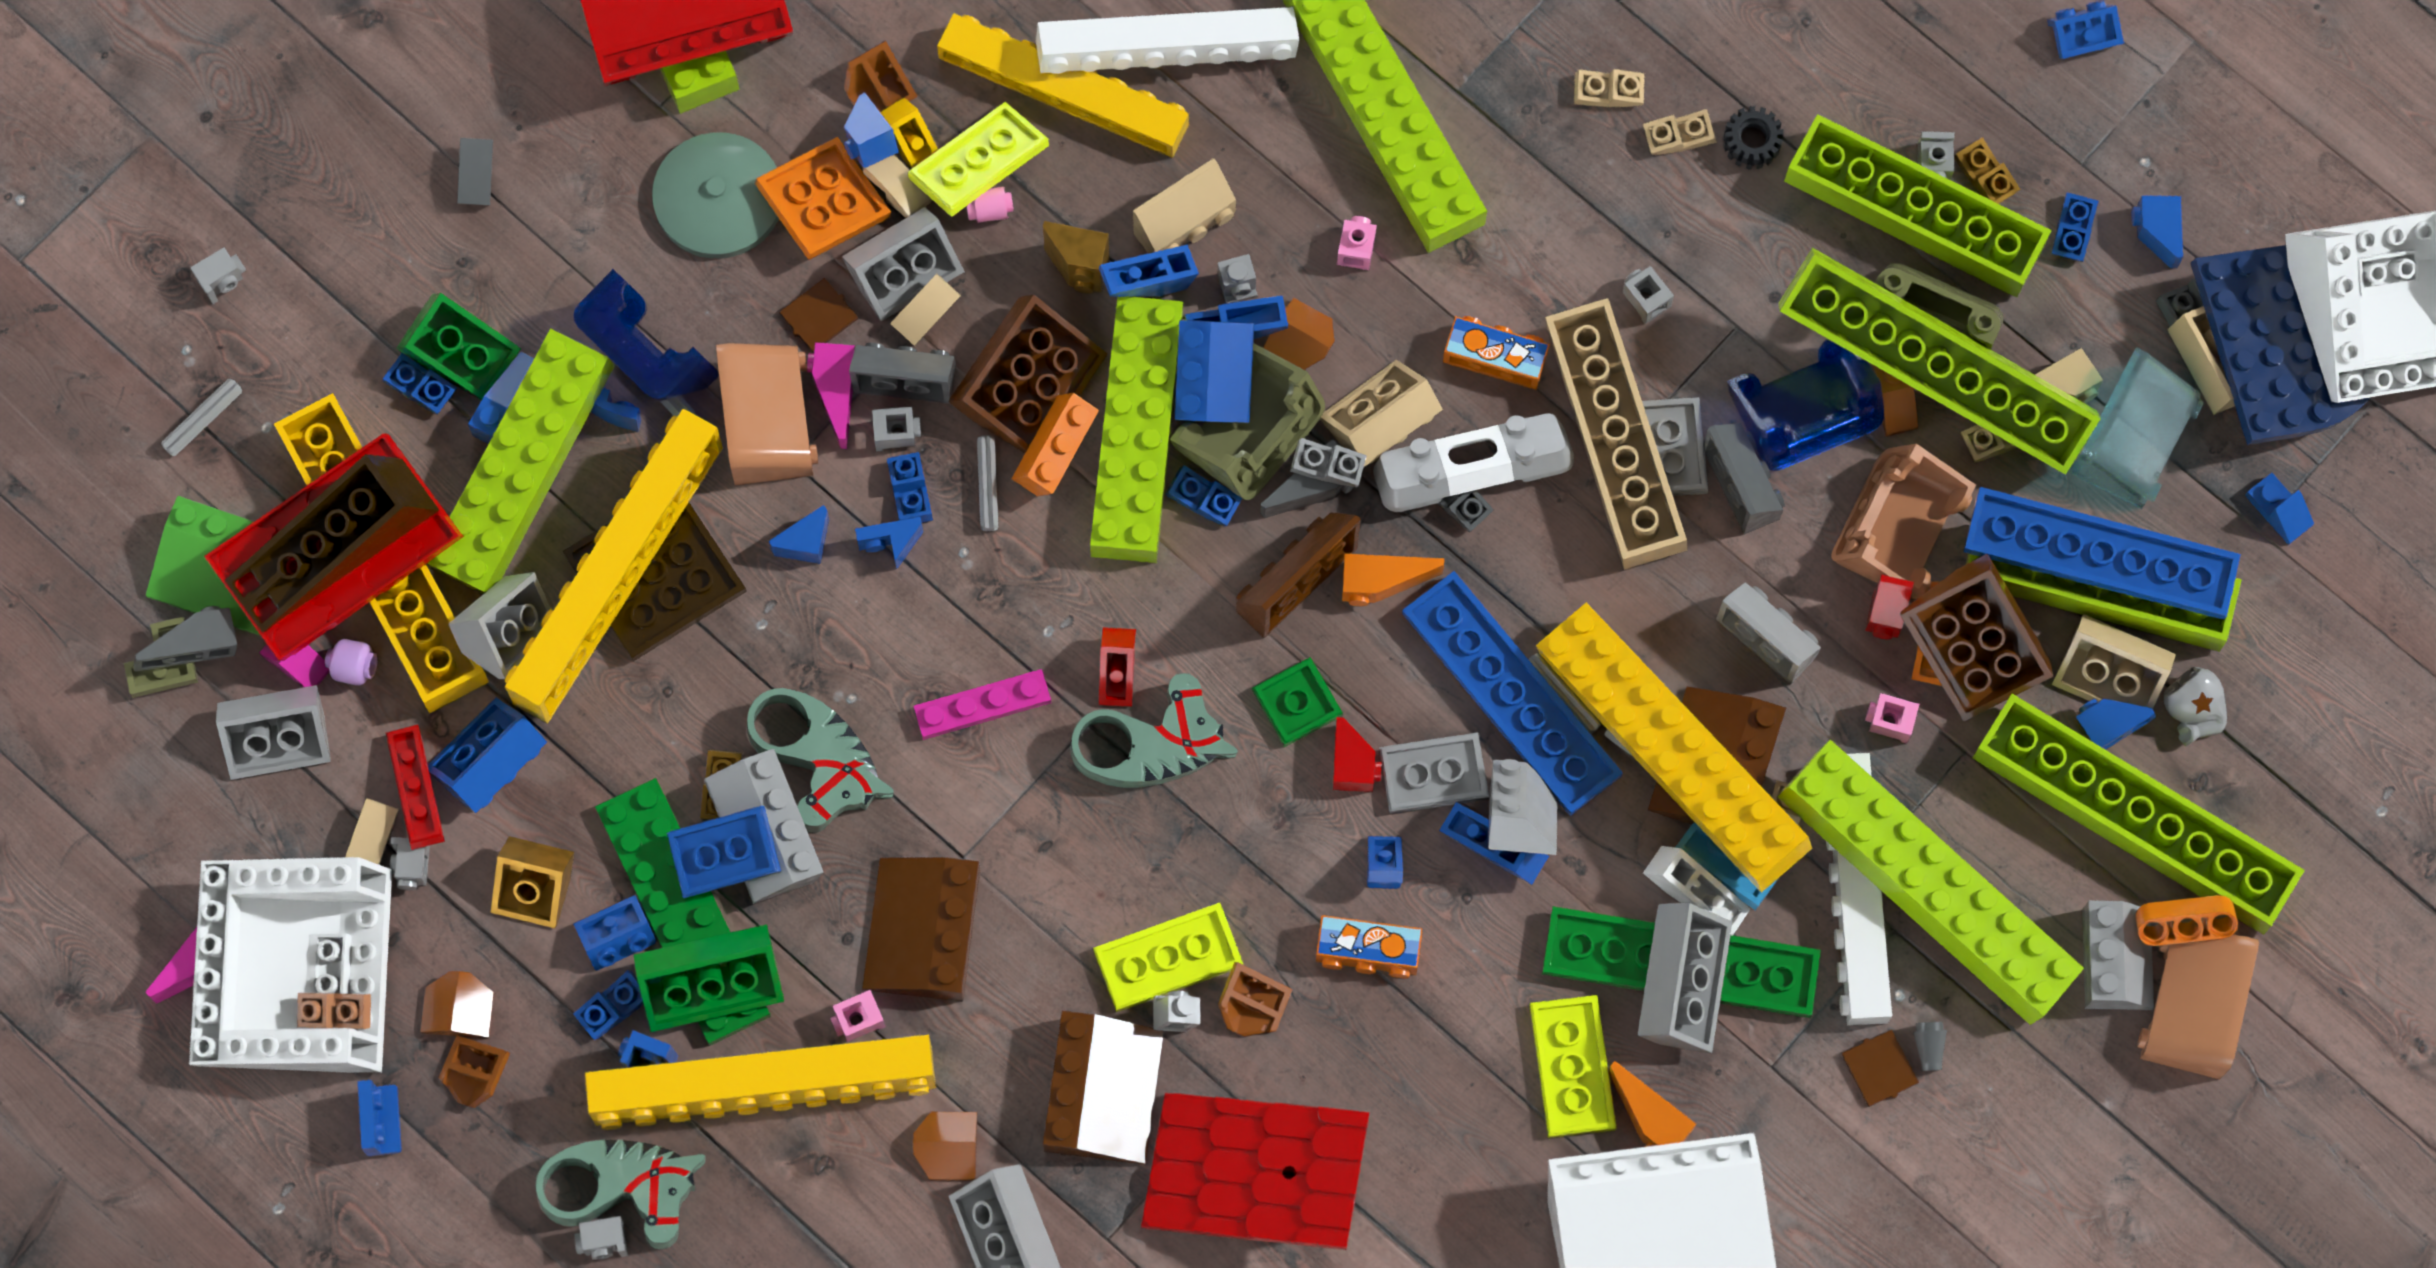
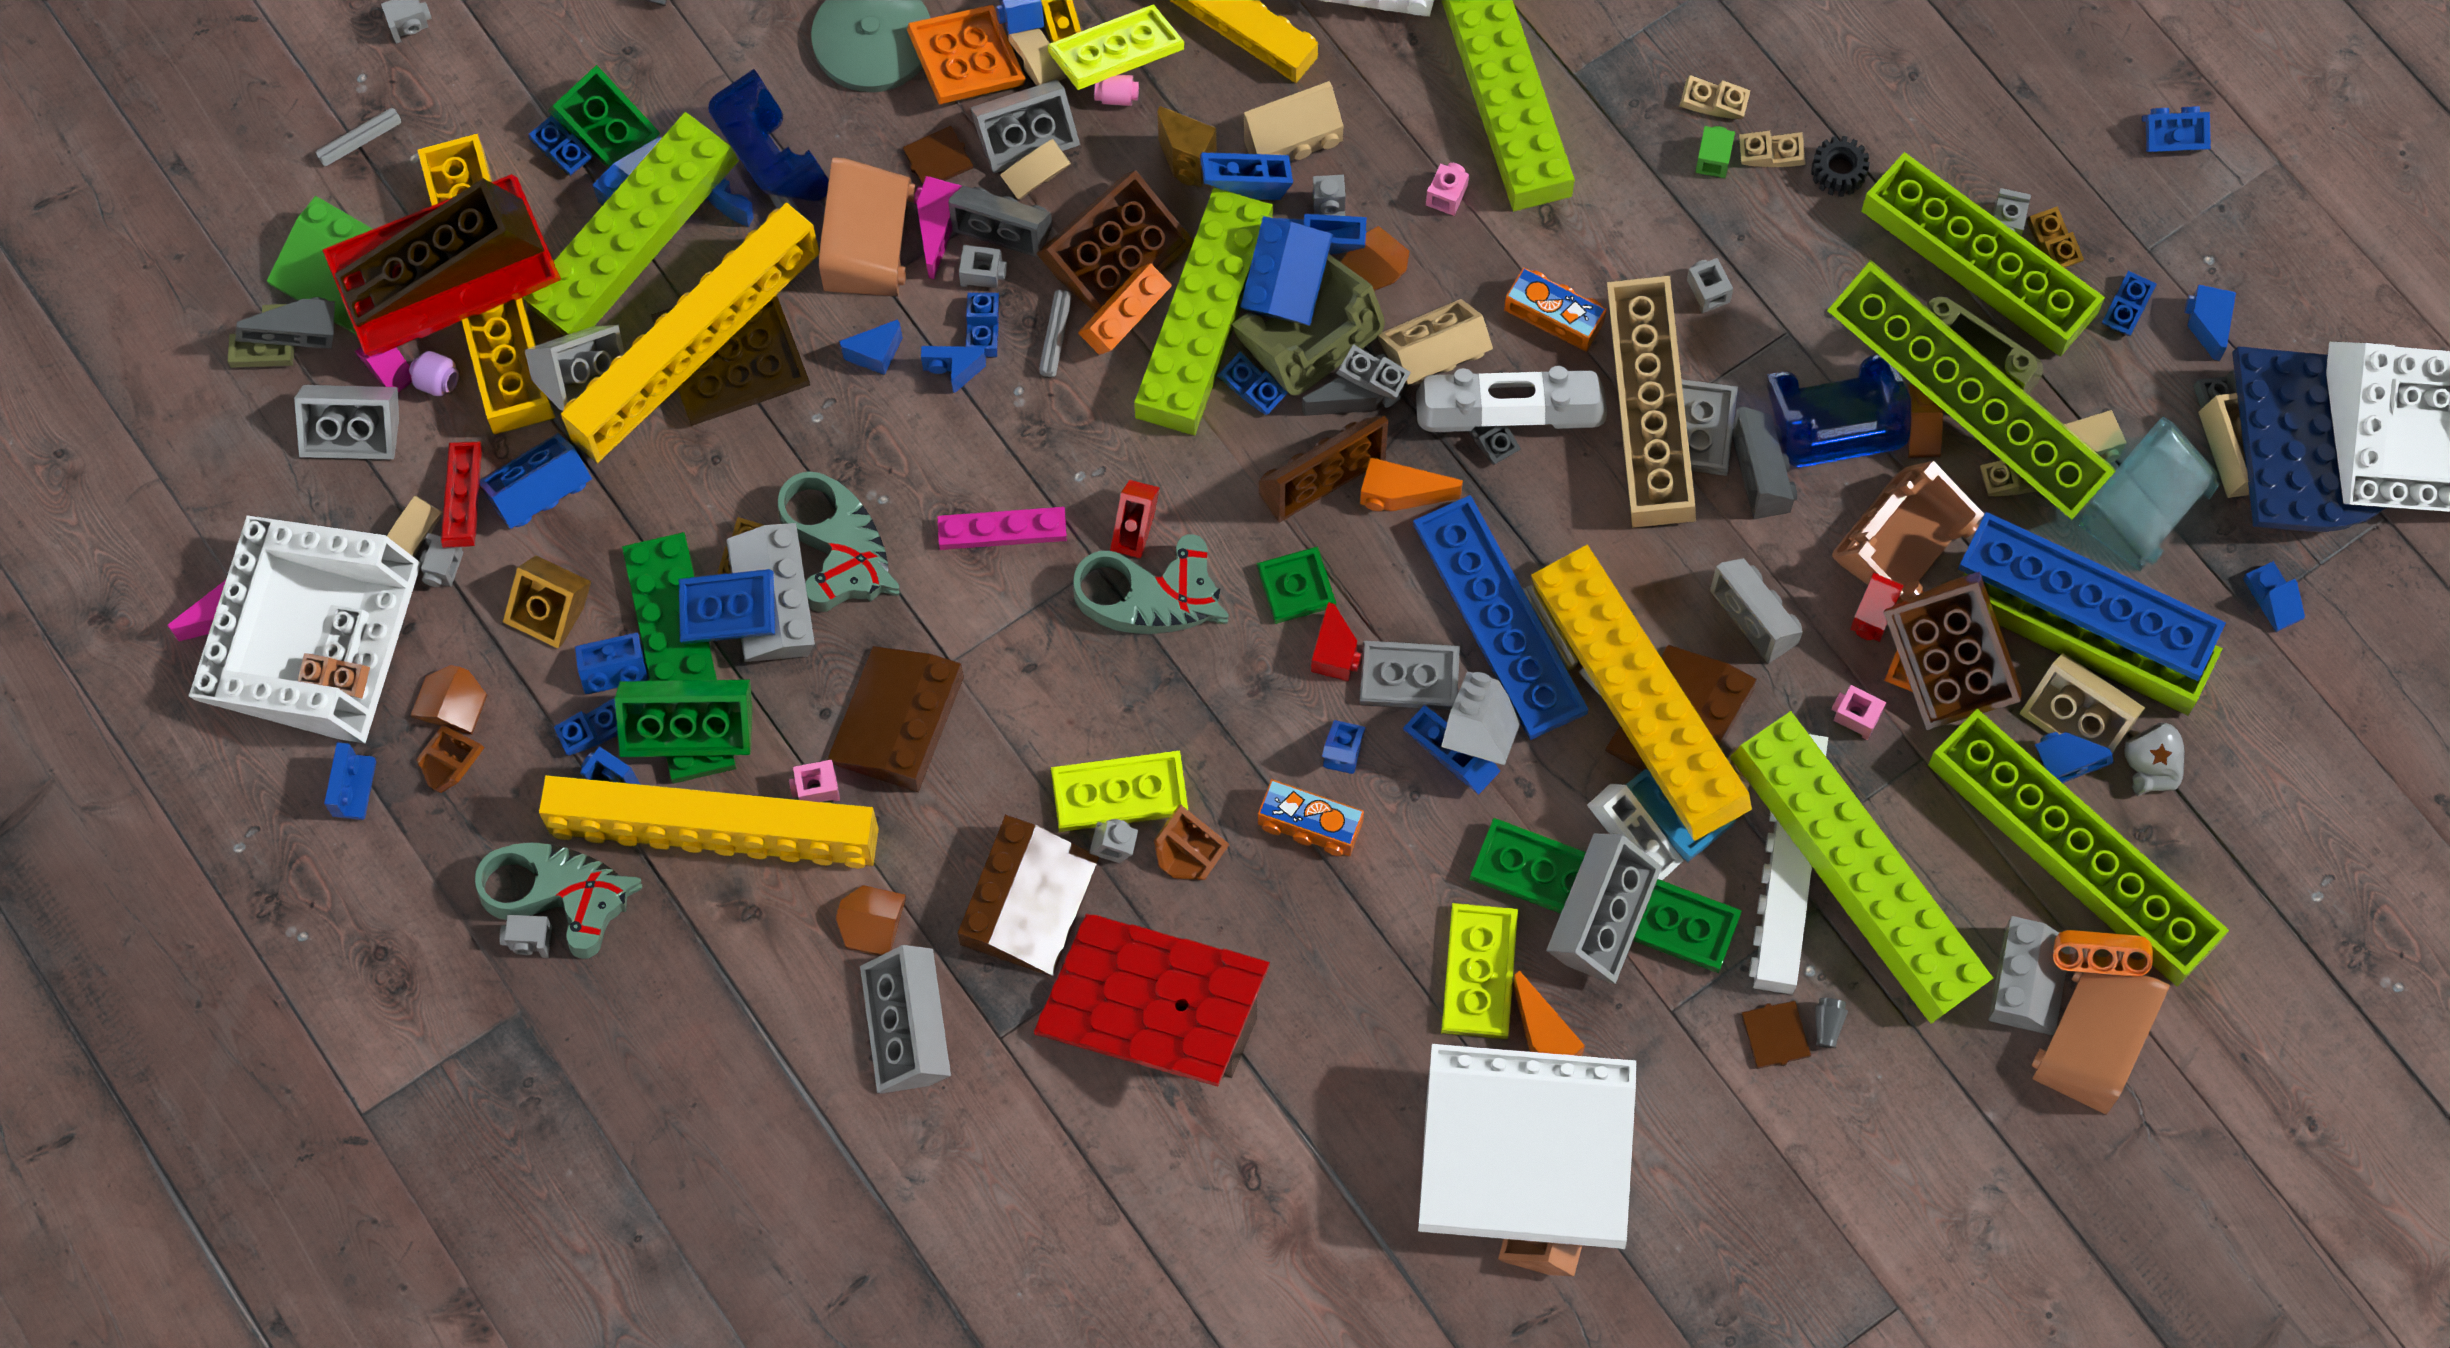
camera: 15 degrees right, 5 degrees down
(1622, 148) = (1715, 151): none -> bright green brick

